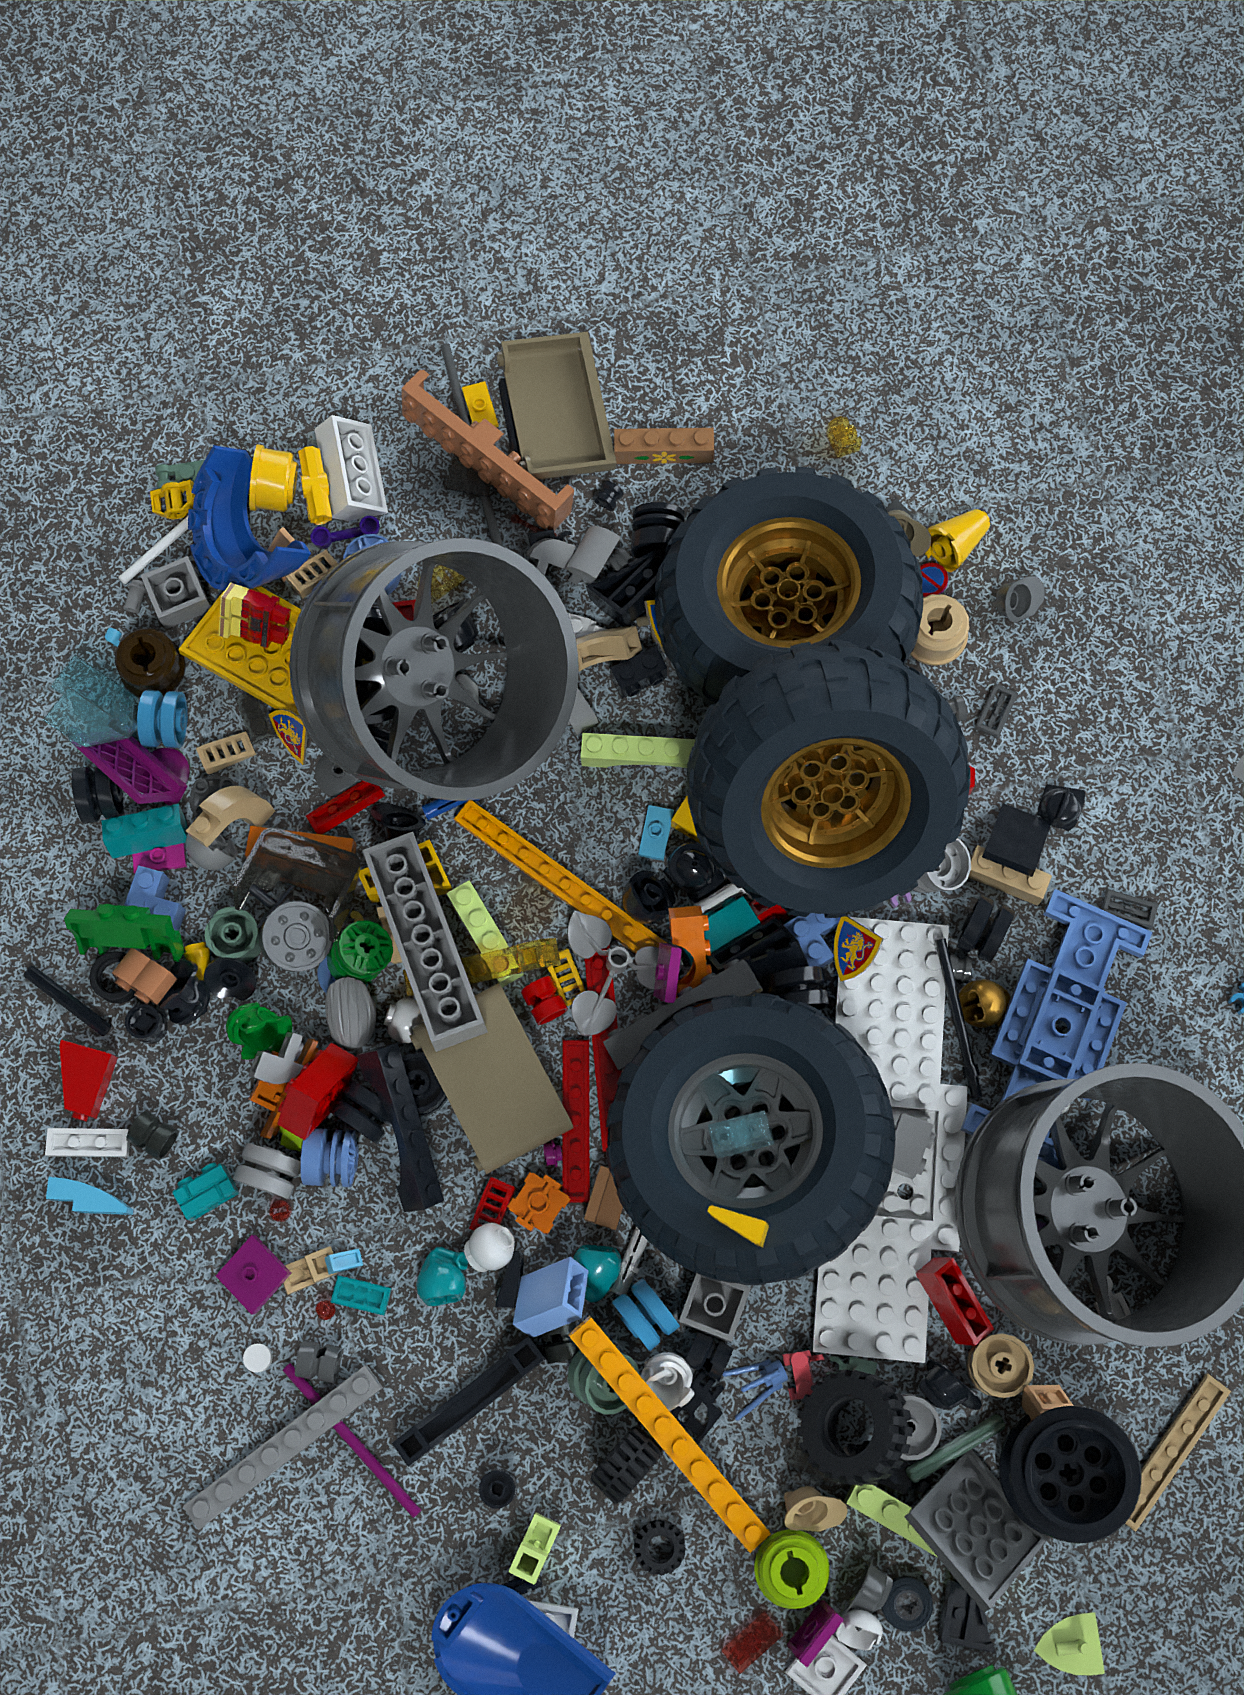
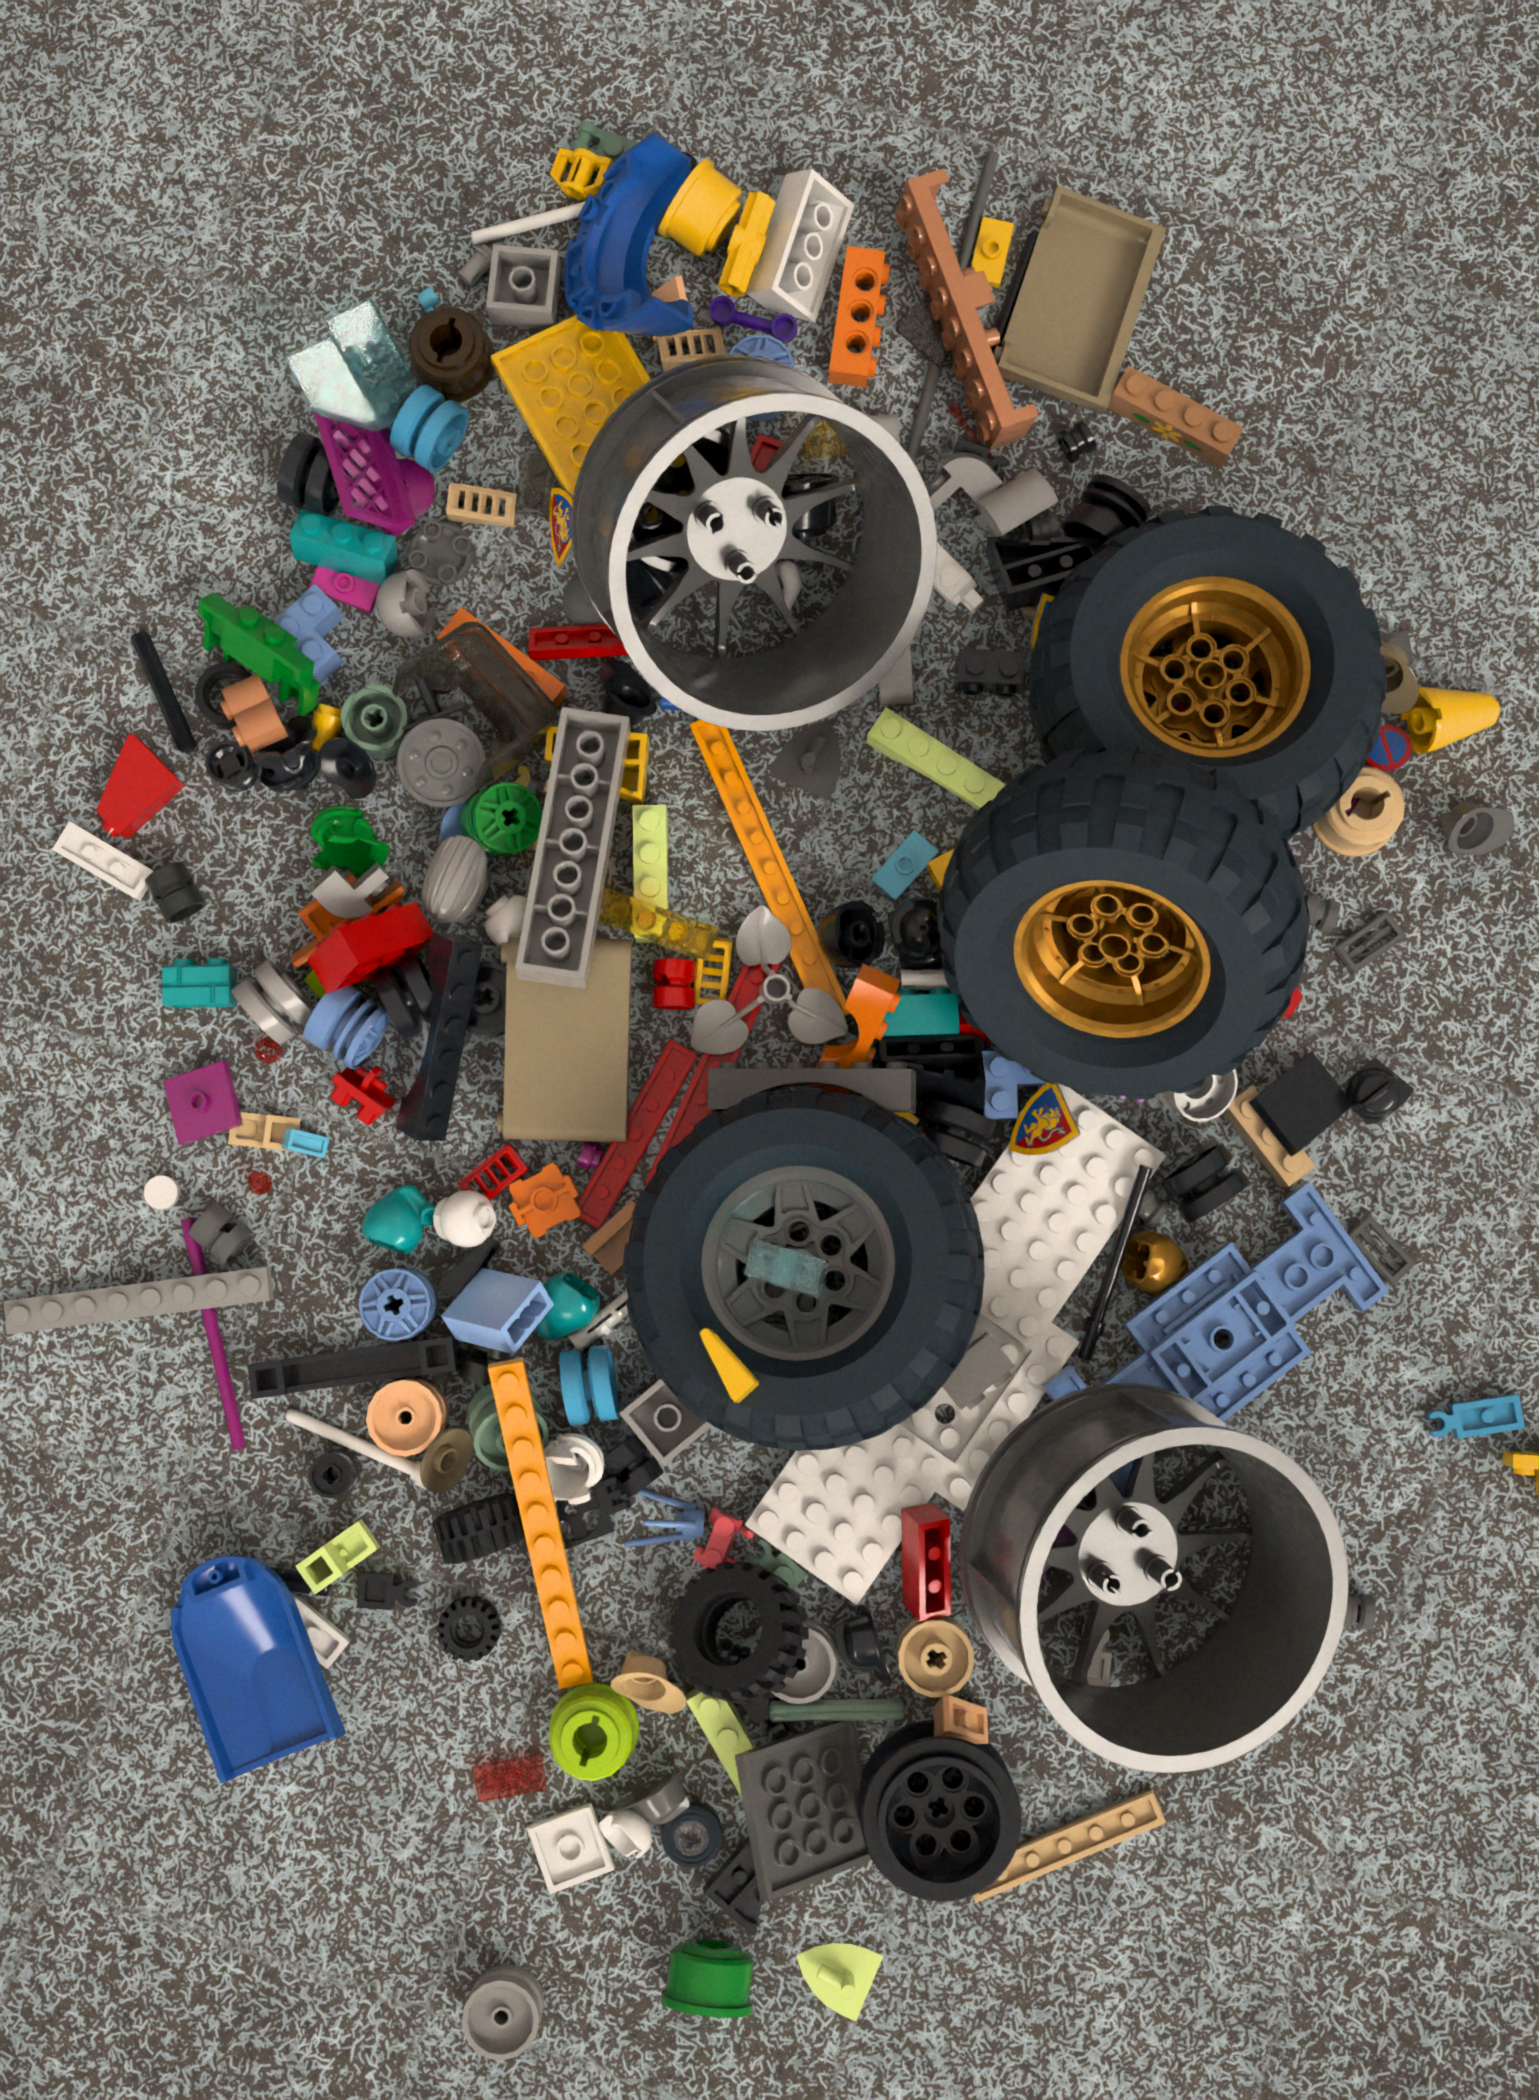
camera: 30 degrees right, 10 degrees up
(85, 1197) = (71, 919): medium azure slope -> none
(224, 808) = (443, 571): tan arch -> none
(252, 616) = (590, 363): hips -> none
(361, 1295) = (304, 1189): teal plate -> none
(364, 1197) = (365, 1088): none -> red hips
(406, 458) = (860, 267): none -> orange brick
(492, 1333) = (415, 1314): none -> medium blue wheel
(544, 1409) = (388, 1425): none -> light nougat wheel
(550, 798) = (810, 760): none -> dark grey shield
(558, 1452) = (356, 1444): none -> white piece
(574, 1430) = (446, 1460): none -> dark tan dish
(579, 1557) = (379, 1590): none -> black plate
(608, 645) = (968, 619): tan arch -> none
(667, 972) = (821, 1034): magenta plate -> none
(814, 1633) = (577, 1809): magenta plate -> none
(843, 437) = (1389, 521): clear yellow brick -> none

